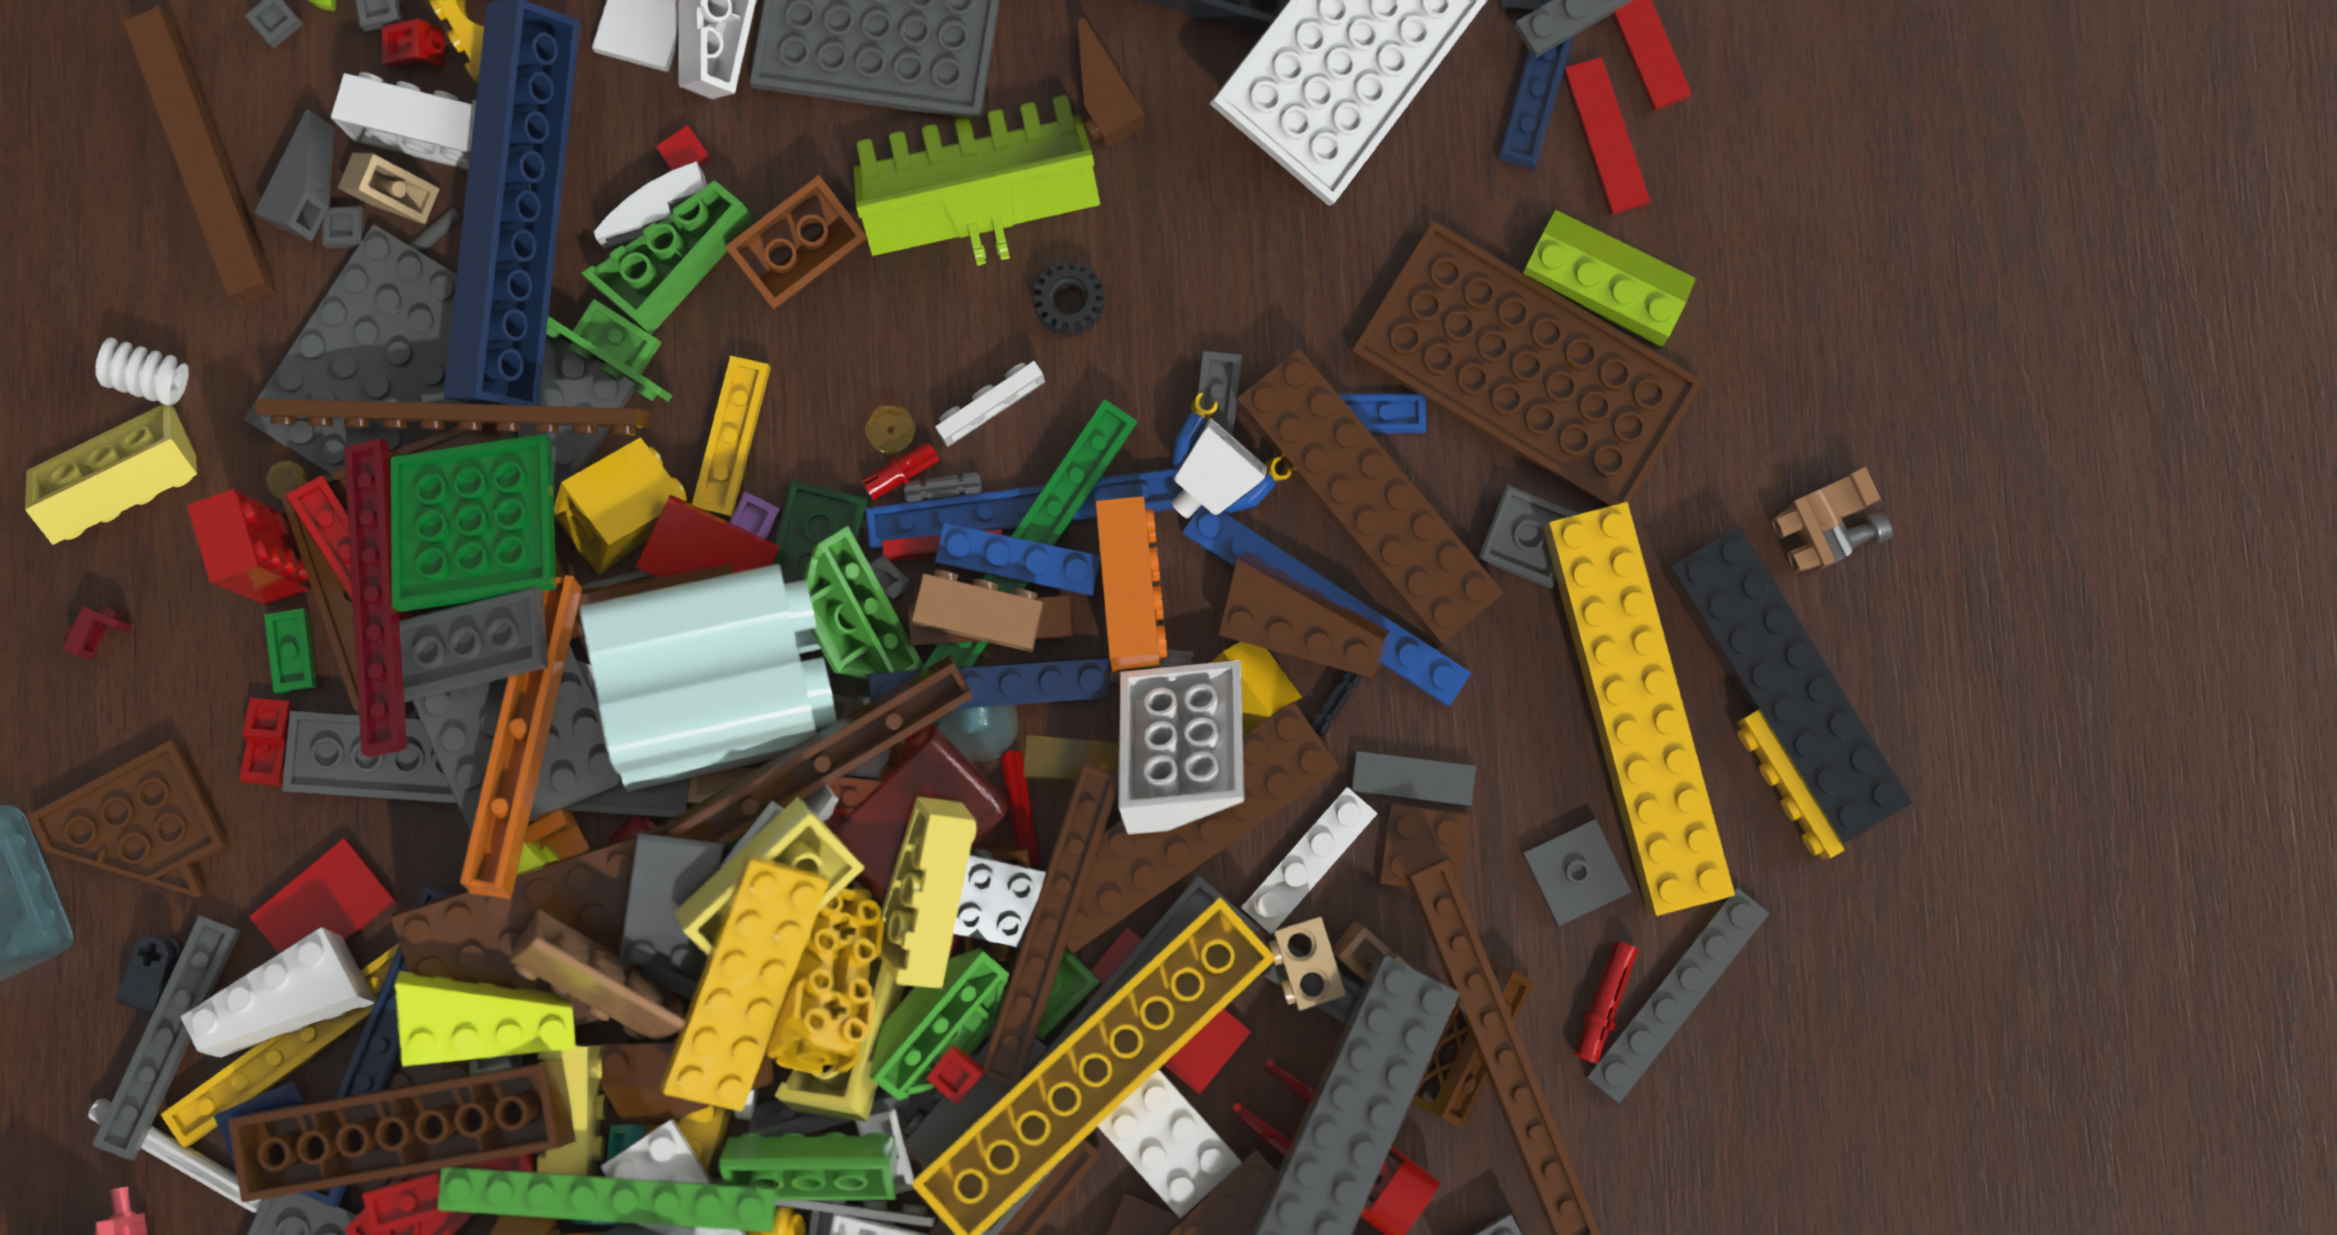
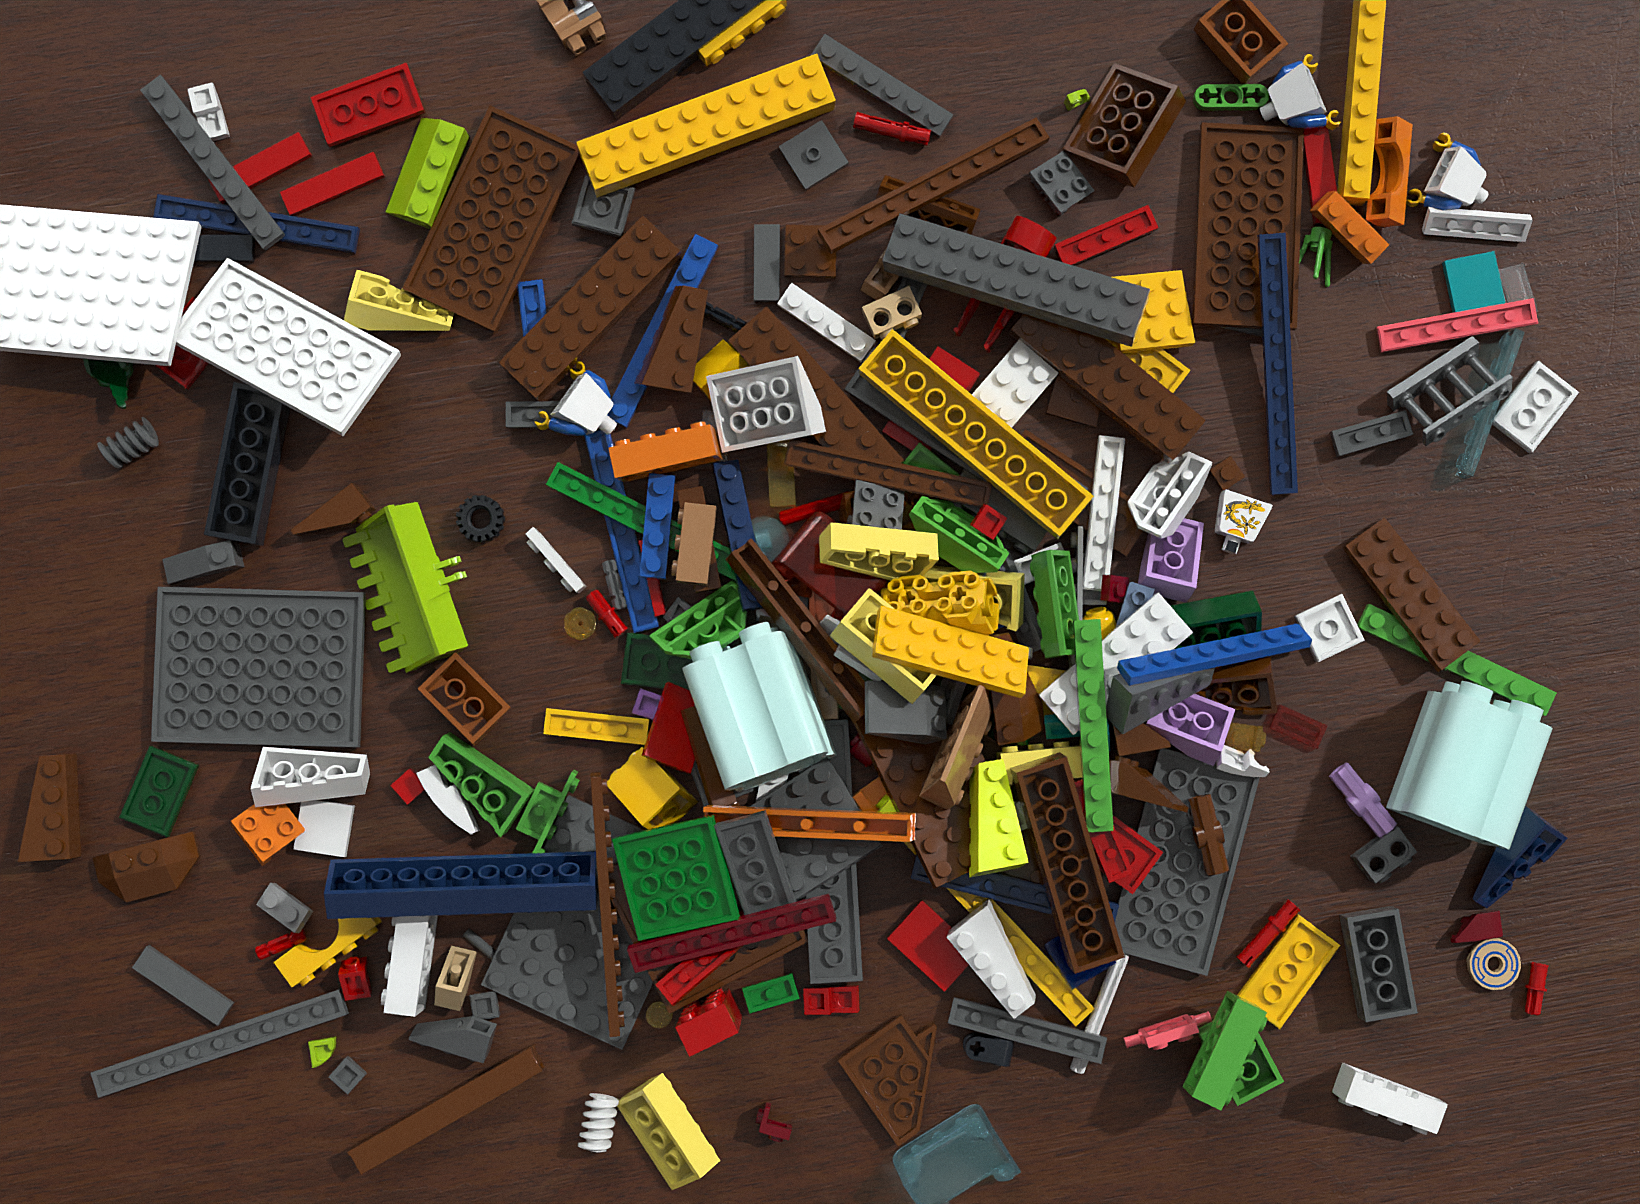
camera: 100 degrees left, 5 degrees up
(1407, 193) = (380, 306): none -> light yellow wedge
(1723, 200) = (367, 104): none -> red plate

